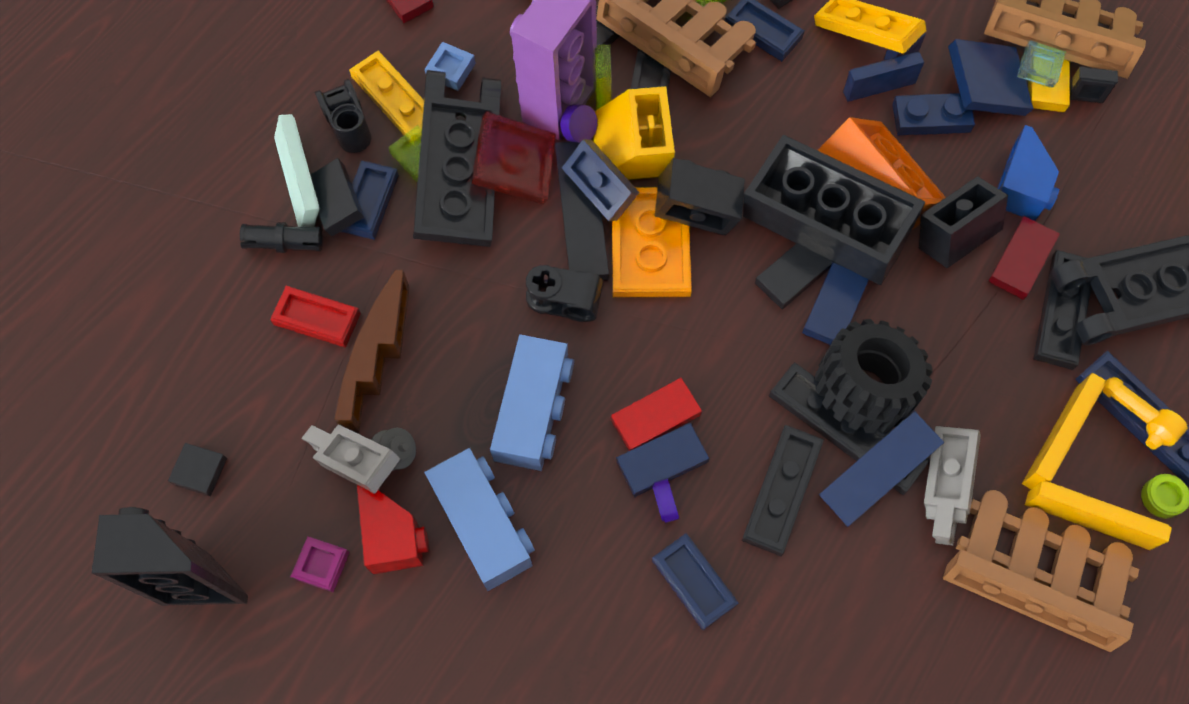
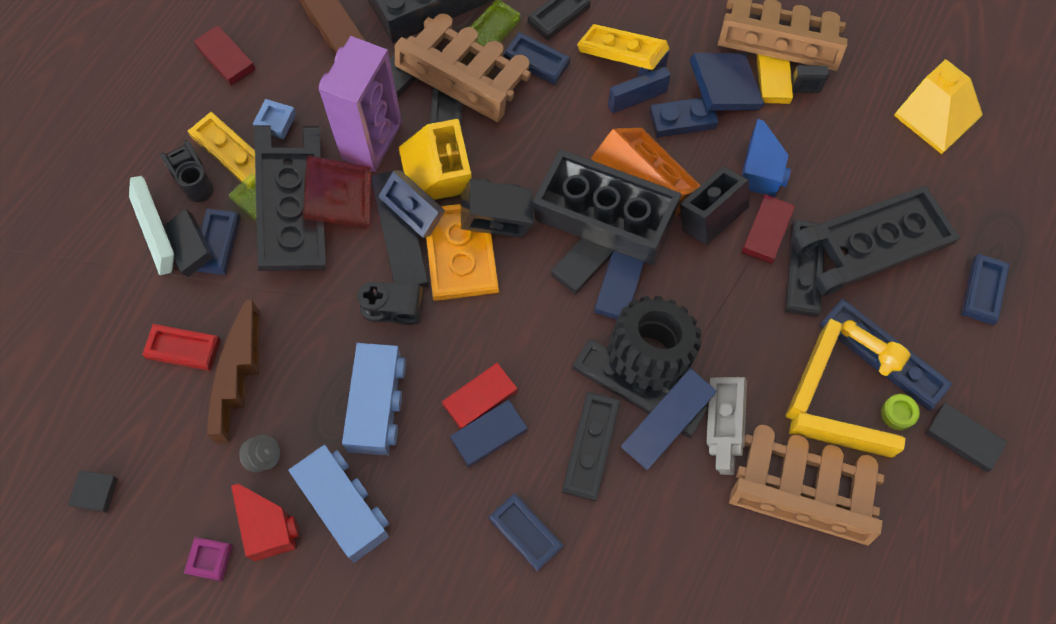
camera: 10 degrees left, 0 degrees up
(159, 562) = (67, 577): black slope -> none
(281, 237) = (144, 282): black pin -> none
(352, 456) = (225, 464): light grey hinge -> none
(578, 123) = (388, 156): dark purple tile -> none
(602, 75) = (404, 114): clear neon green tile -> none
(665, 500) = (494, 468): dark purple tile -> none
(1041, 64) = (766, 66): clear light blue tile -> none

